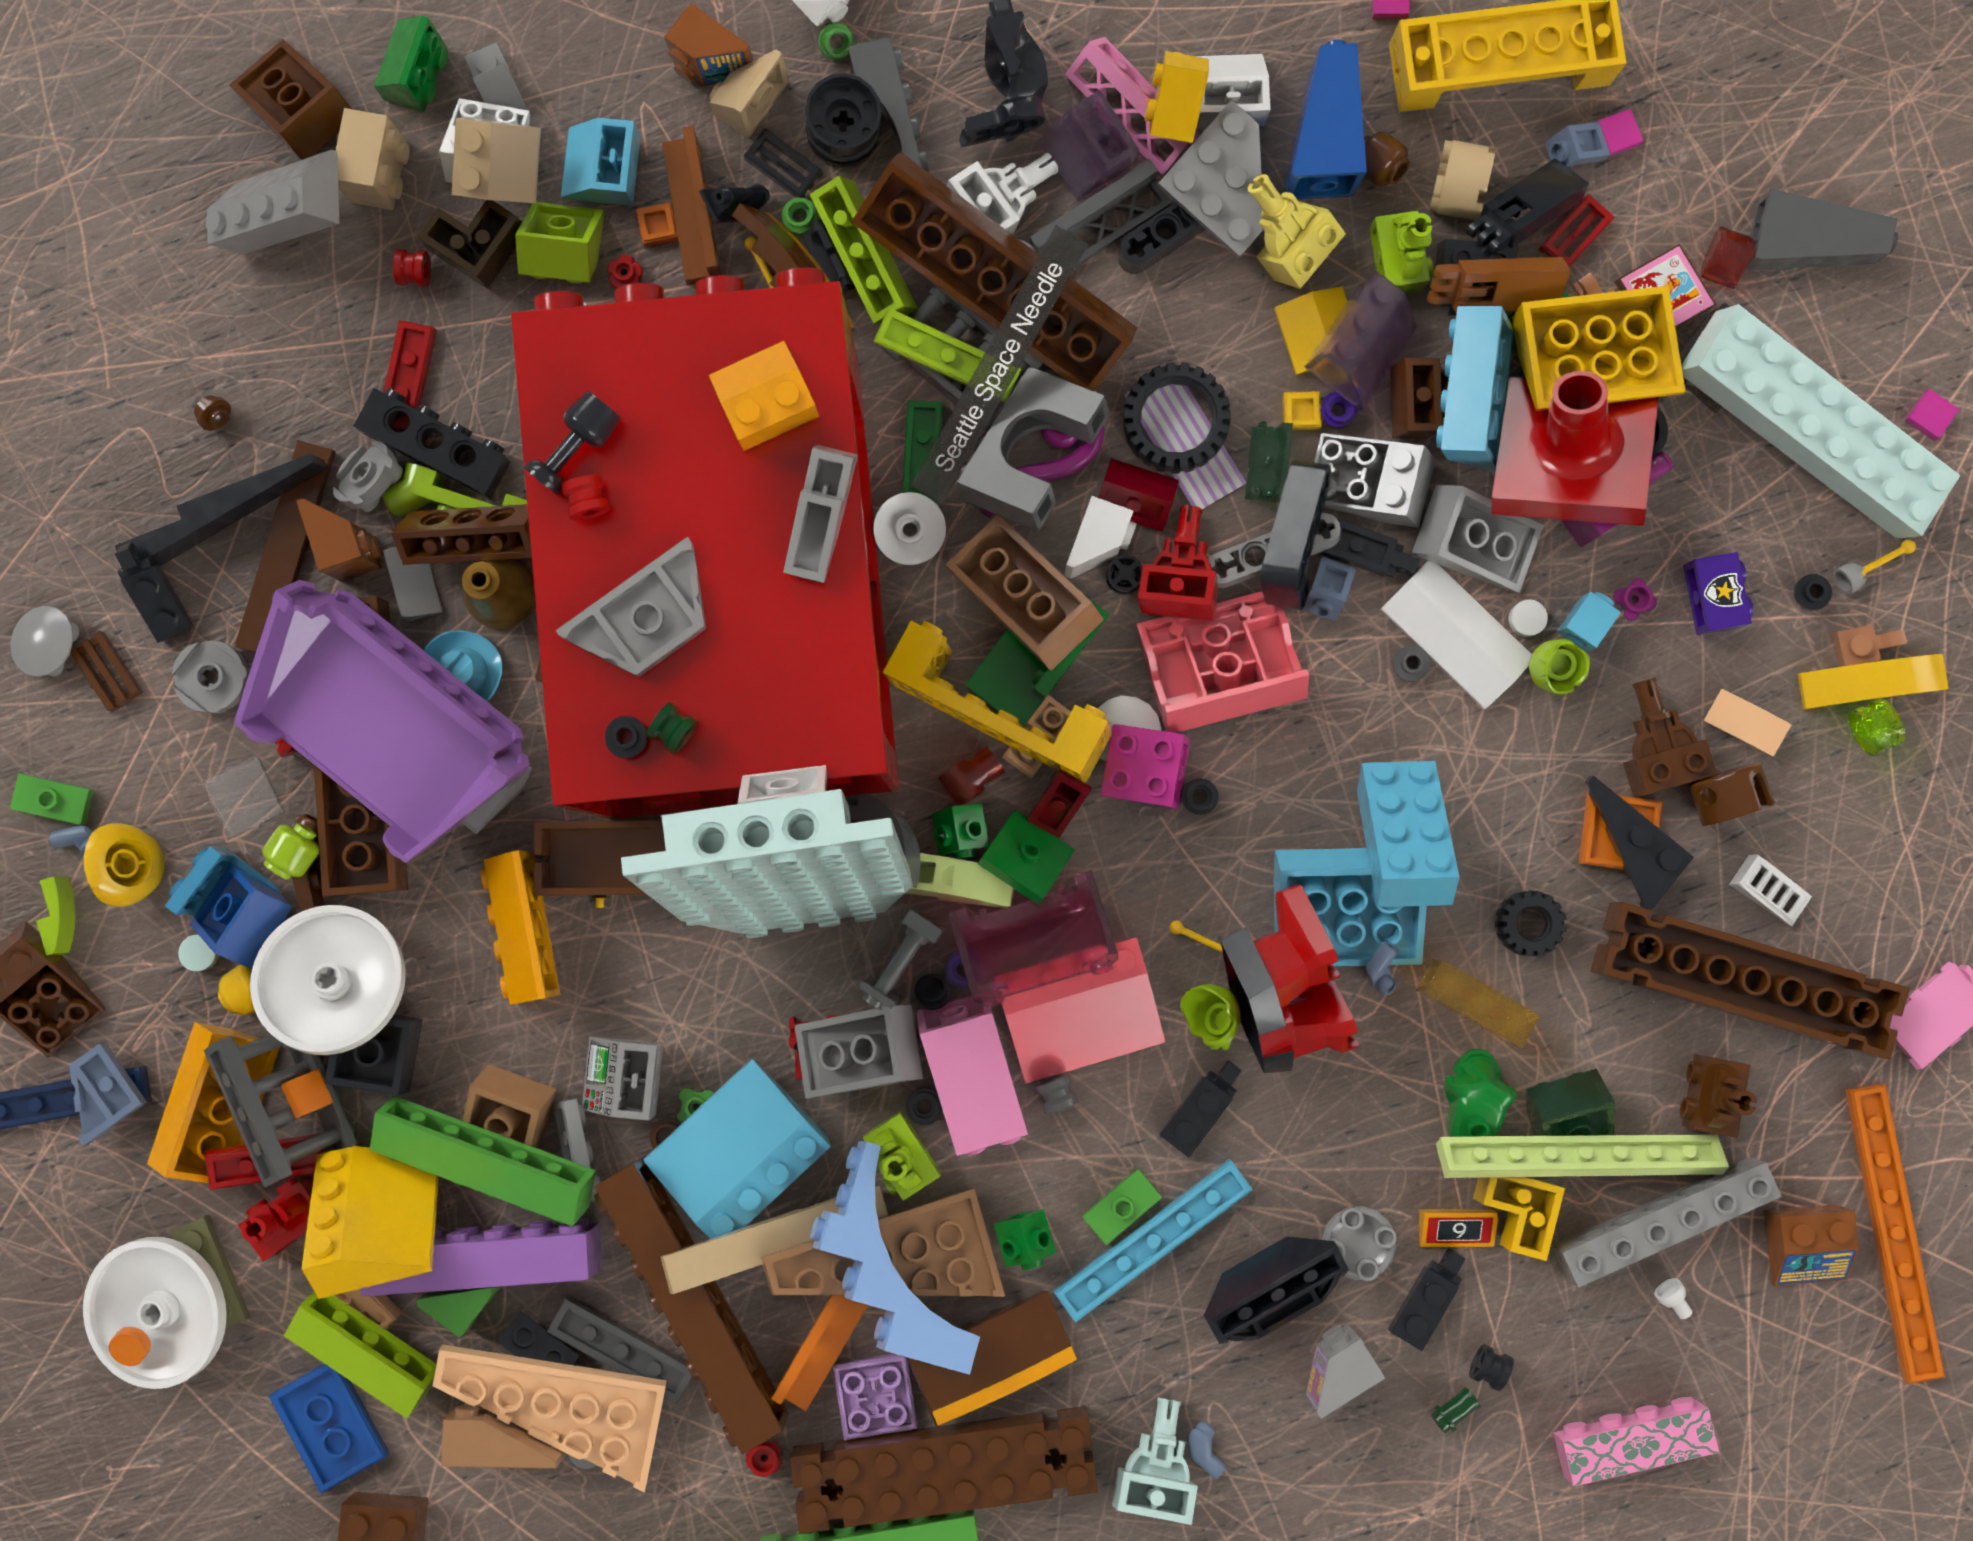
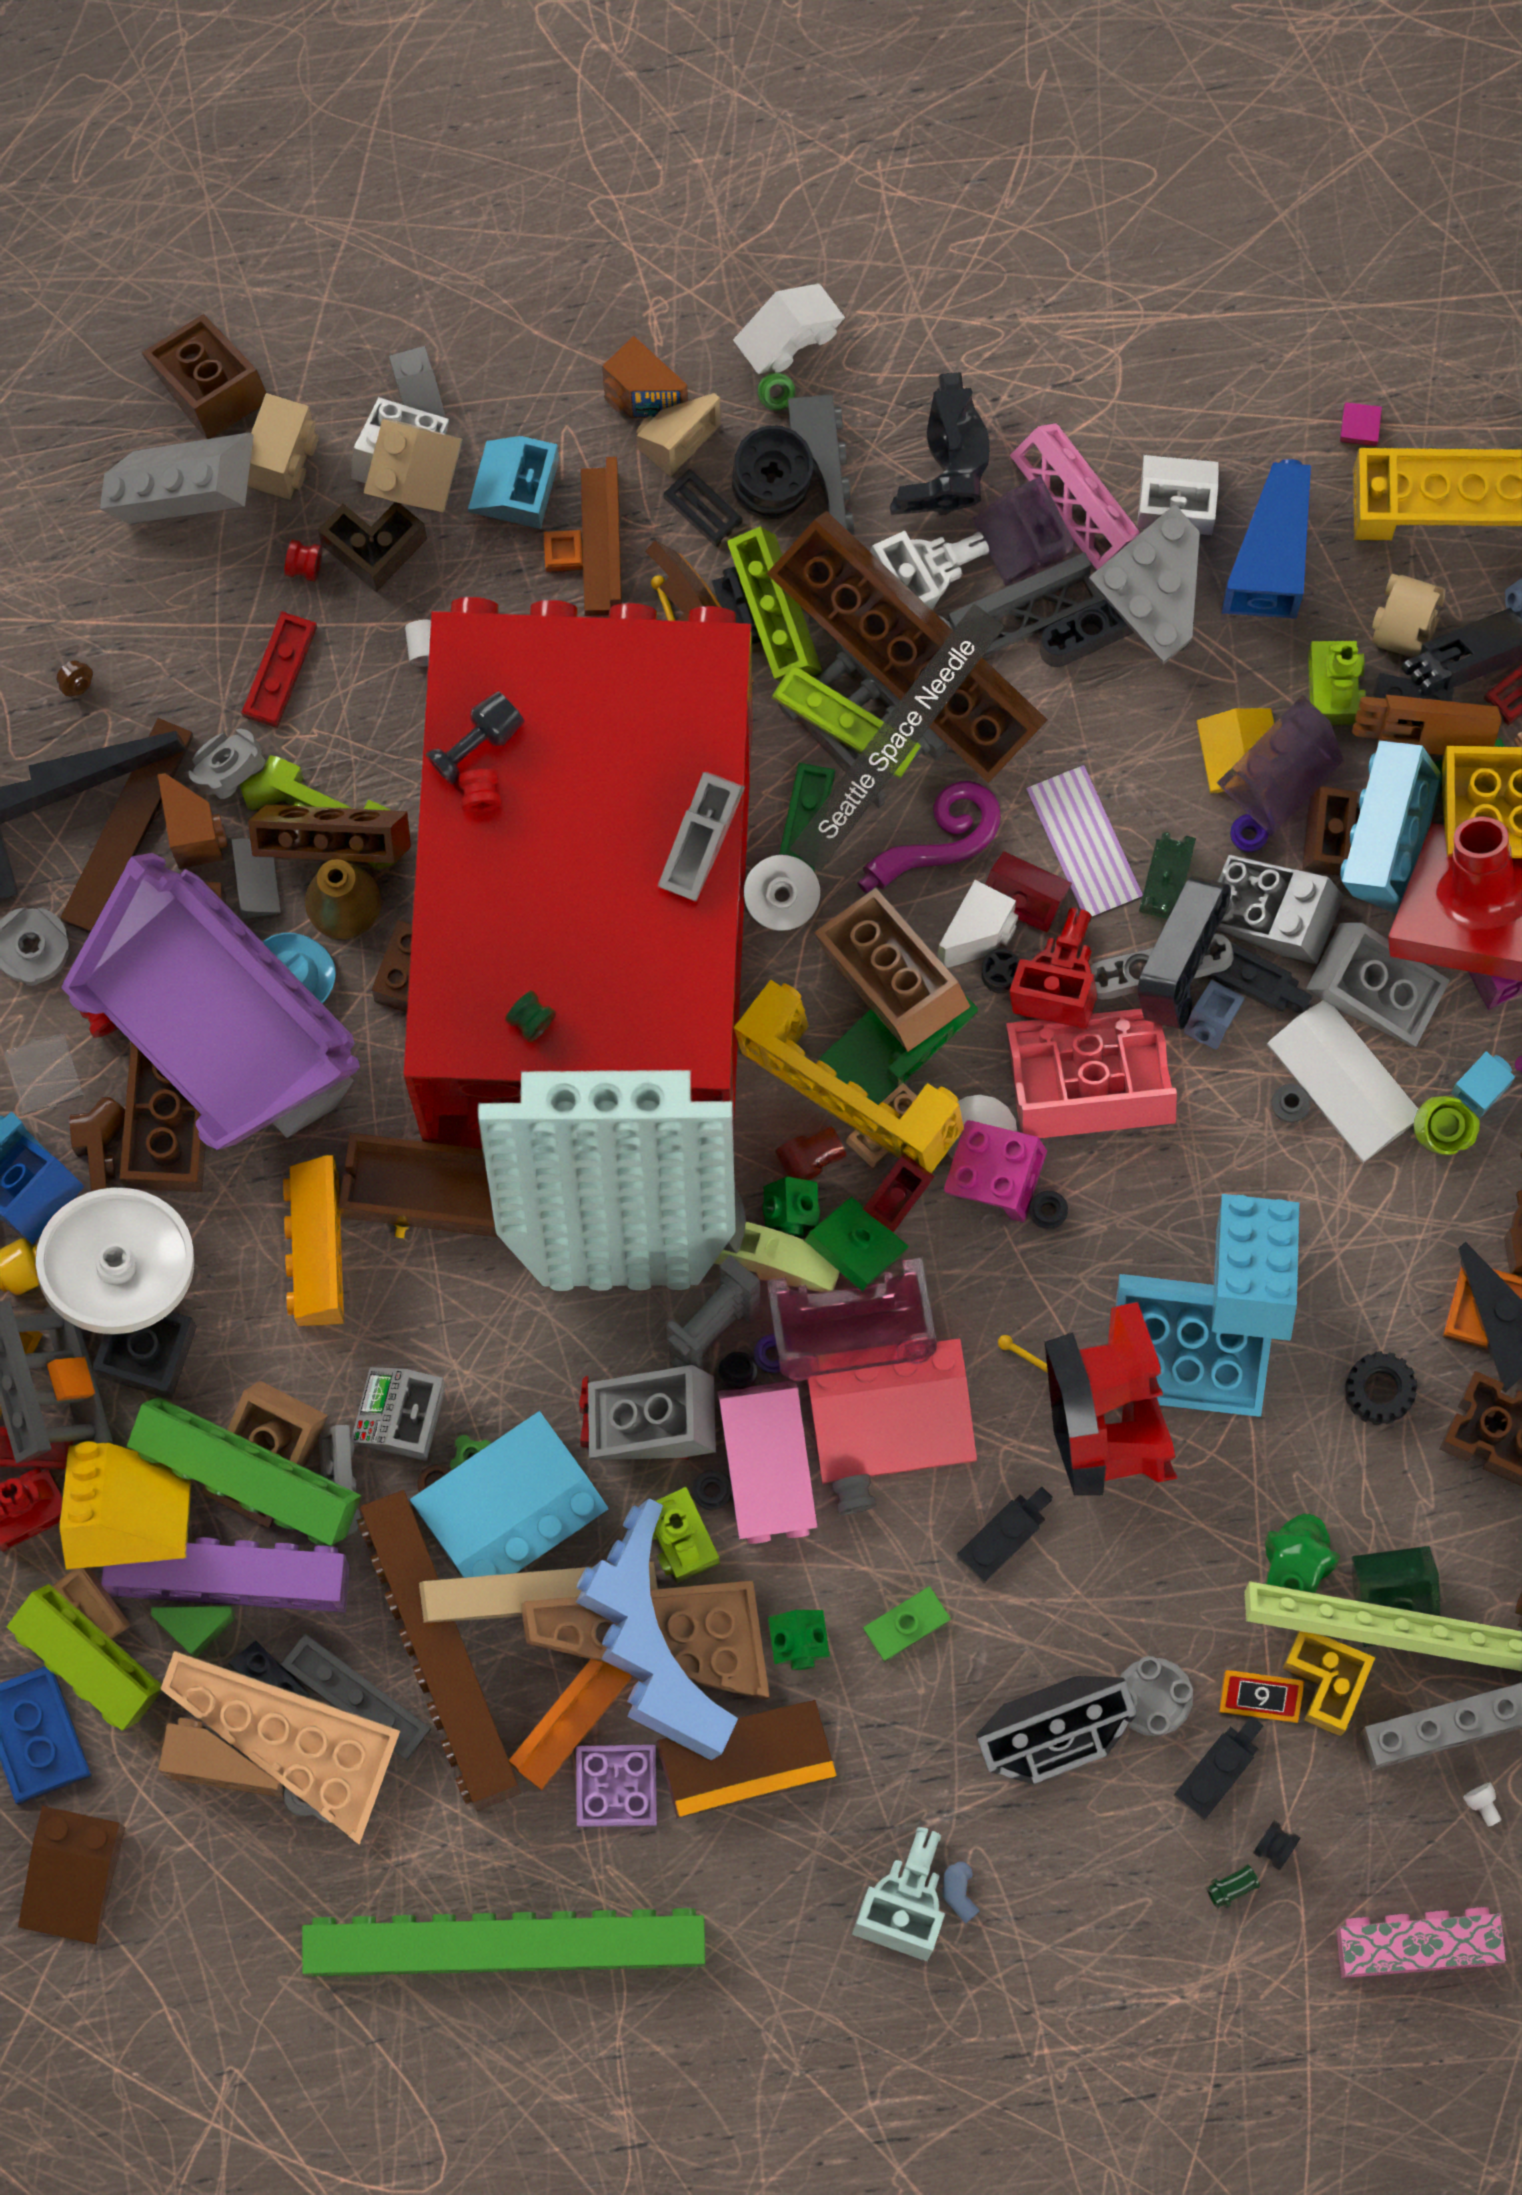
camera: 10 degrees right, 10 degrees down
(290, 850) = (94, 1127): lime head -> none
(378, 421) = (340, 780): black brick -> none
(412, 64) = (335, 356): green slope -> none
(559, 242) = (460, 555): lime slope -> none
(624, 262) = (518, 603): red plate -> none
(638, 741) = (489, 1030): black plate -> none
(645, 614) = (518, 908): light grey wing -> none
(724, 200) = (639, 535): black hinge -> none
(764, 395) = (663, 720): light orange slope -> none
(771, 1465) = (483, 1823): red plate -> none
(795, 206) = (708, 551): bright green plate -> none
(943, 1469) = (678, 1867): reddish brown brick -> none
(1034, 404) = (930, 783): dark grey arch -> none
(1152, 1240) = (934, 1664): medium azure tile -> none
(1176, 375) = (1083, 774): black tyre -> none
(1178, 96) = (1120, 493): yellow brick -> none
(1212, 1014) = (1028, 1432): lime hair -> none
(1295, 234) = (1223, 648): light yellow brick -> none
(1302, 410) = (1211, 829): yellow tile -> none
(1340, 1370) = (1116, 1815): light grey slope -> none
(1378, 968) = (1213, 1414): sand blue arm -> none
(1385, 159) = (1329, 584): reddish brown head -> none
(1477, 1003) = (1312, 1460): clear yellow brick -> none
(1527, 618) = (1421, 1073): white tile -> none

